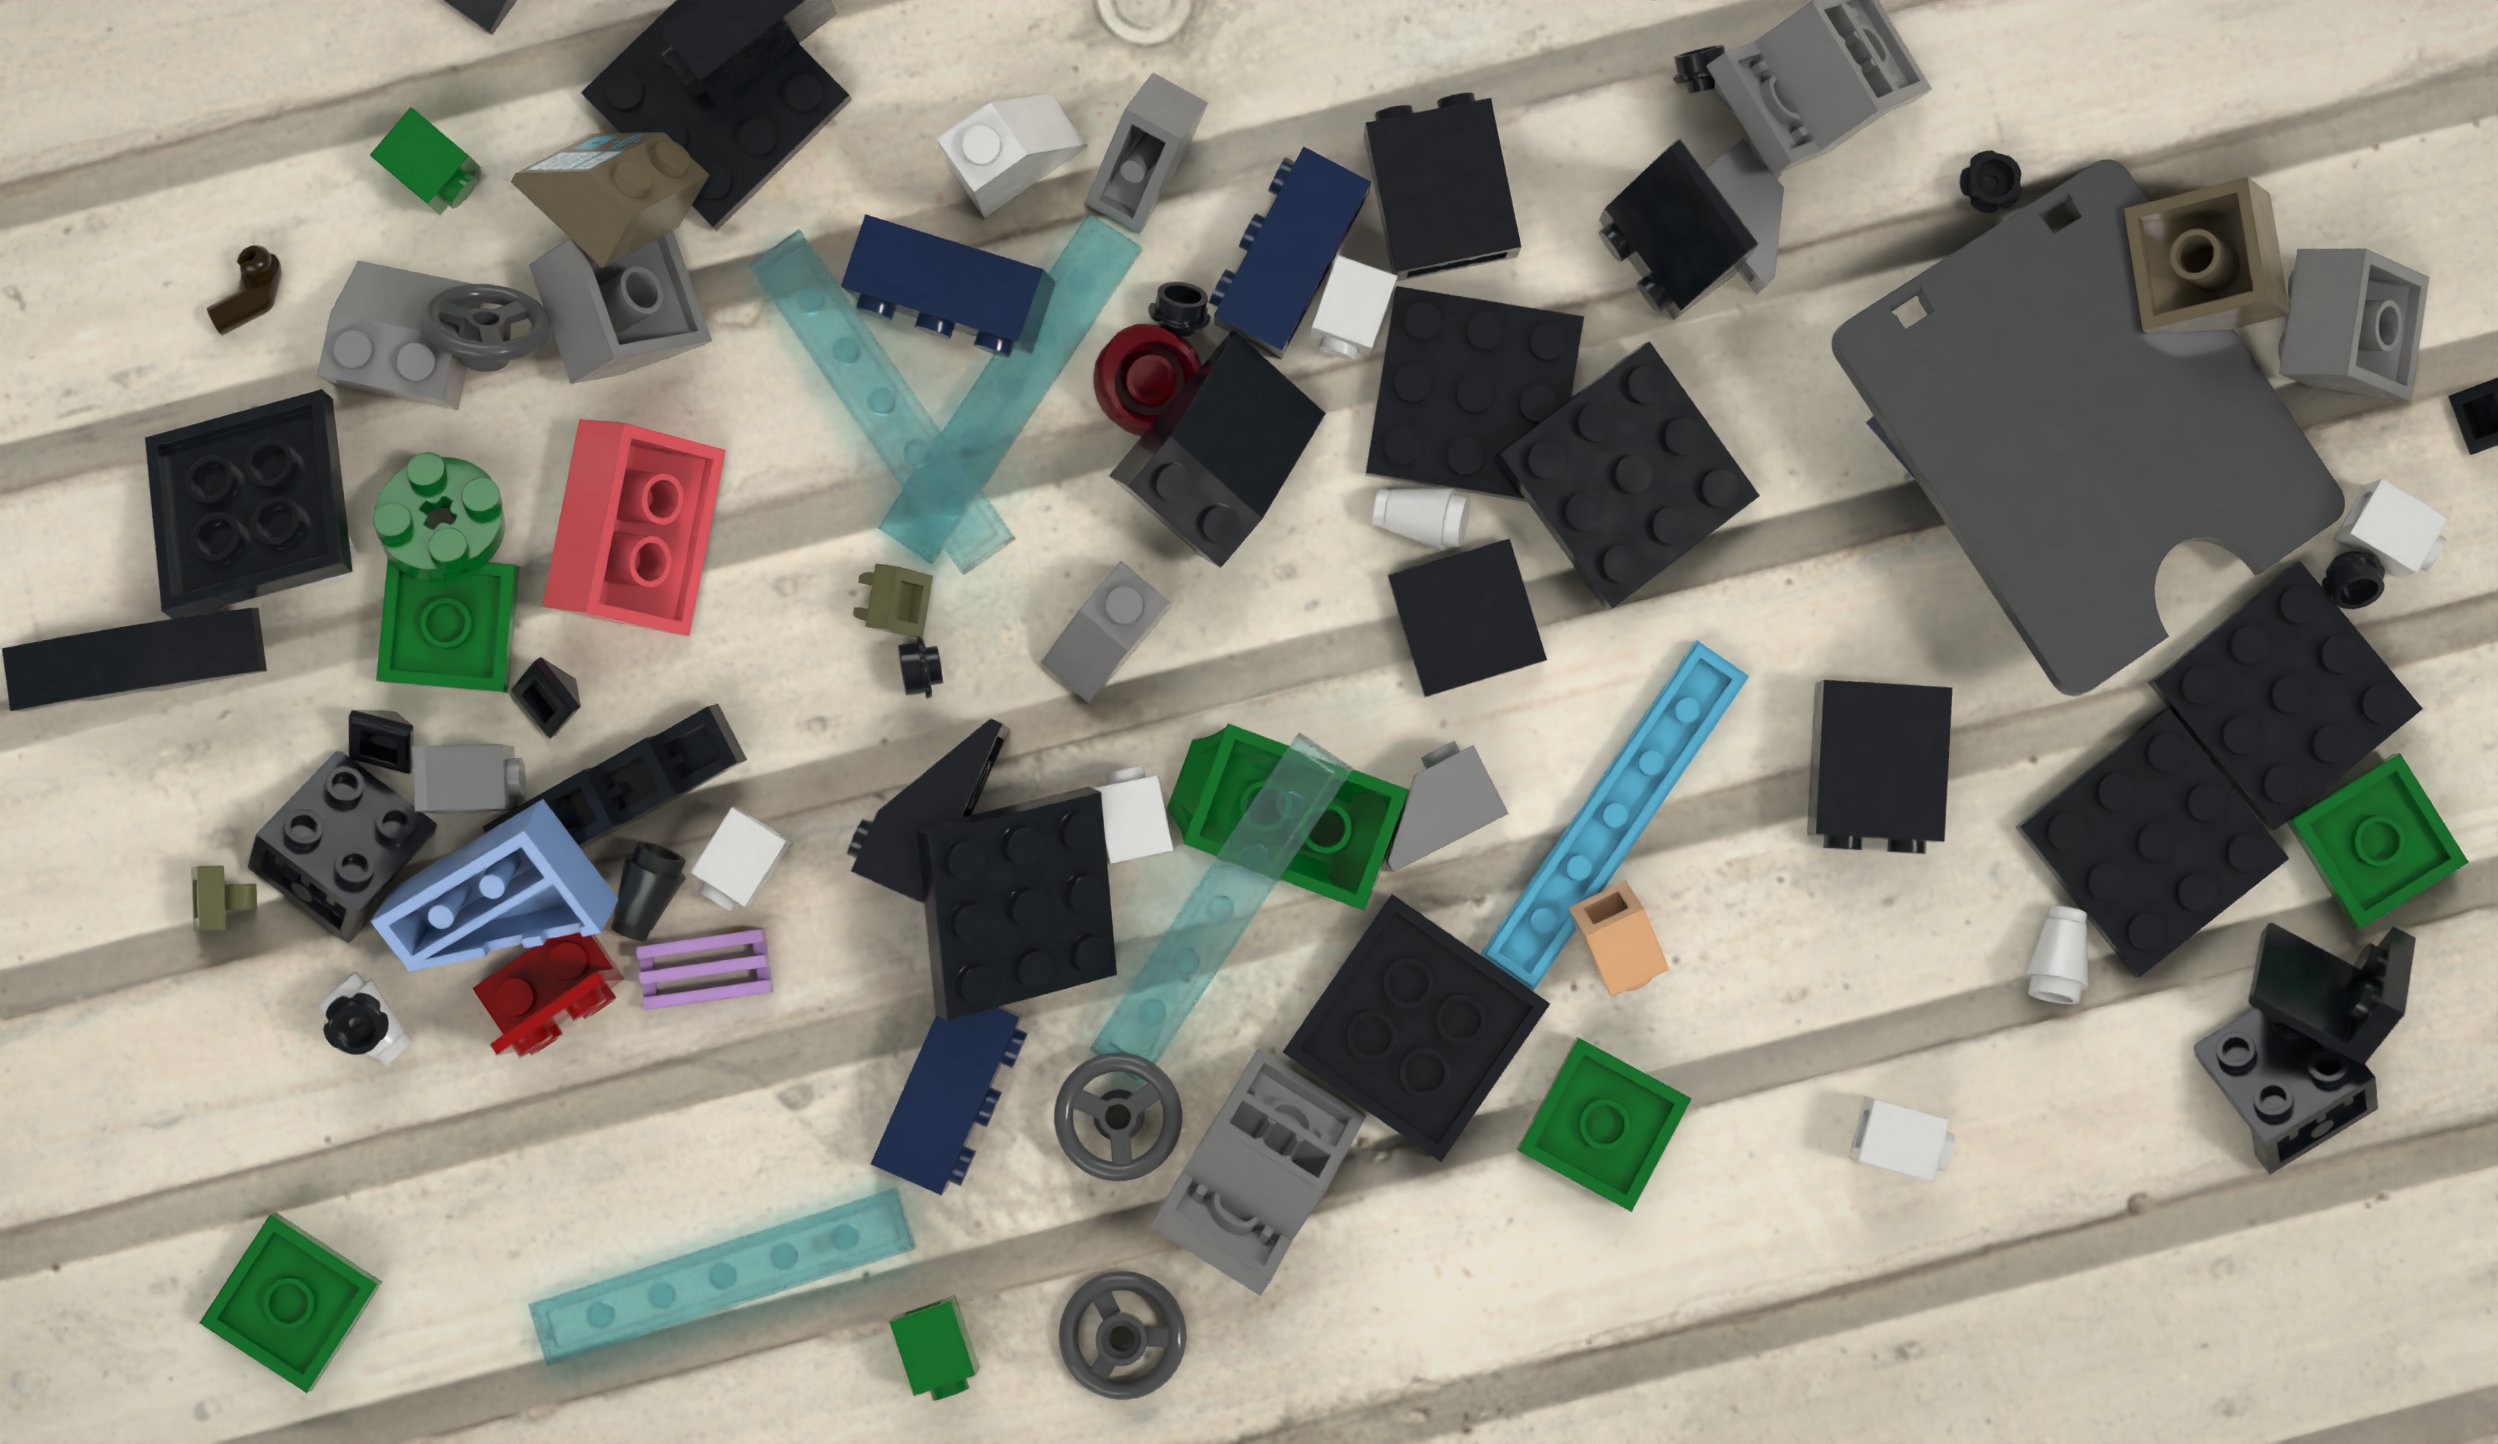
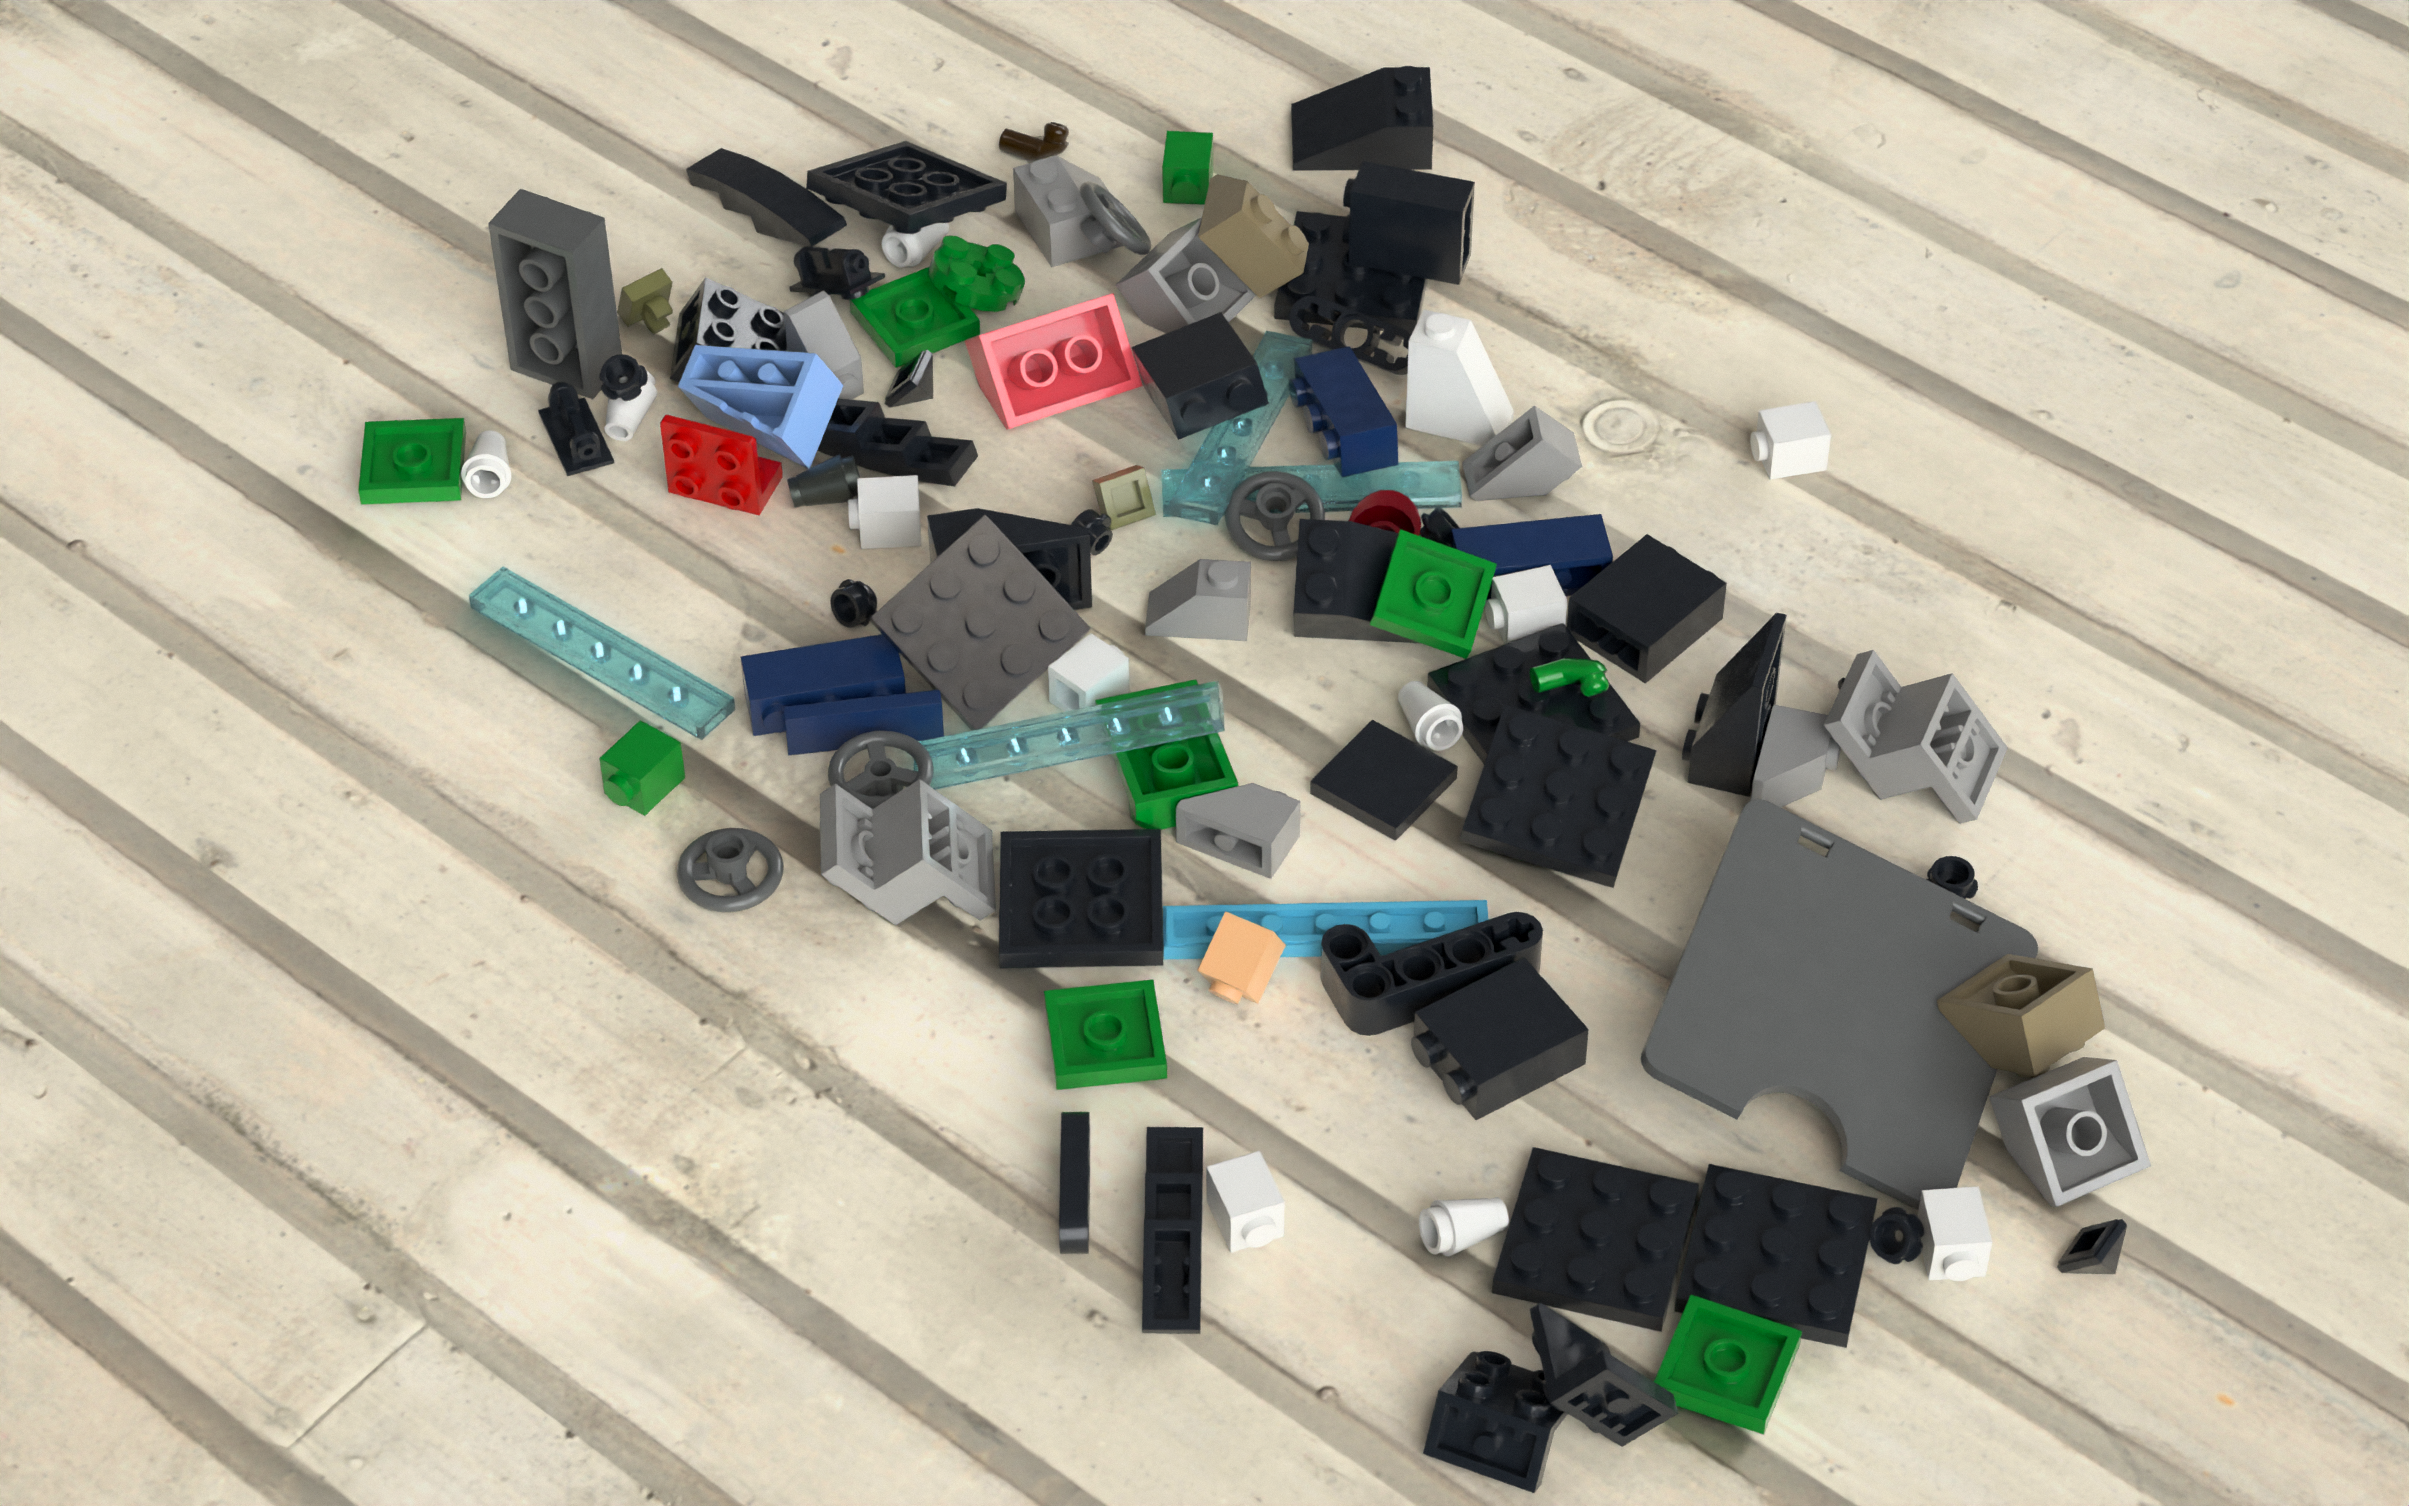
camera: 55 degrees right, 40 degrees down
(200, 1037) = (555, 291): none -> dark grey brick
(332, 676) = (834, 271): none -> black hinge
(354, 1226) = (487, 466): none -> white cone
(369, 1101) = (574, 431): none -> black hinge
(650, 977) = (806, 536): lavender tile -> none
(793, 404) = (1200, 375): none -> black brick
(819, 204) = (1330, 311): none -> black beam
(846, 977) = (853, 603): none -> black plate
(1029, 1084) = (832, 723): none -> dark blue tile
(1057, 469) = (1276, 491): none -> dark grey piece
(1302, 411) = (1433, 594): none -> green plate
(1493, 342) = (1568, 671): none -> green arm
(1749, 753) = (1386, 990): none -> black beam
(1762, 1277) = (1074, 1183): none -> black beam
(1877, 1223) = (1173, 1231): none -> black slope

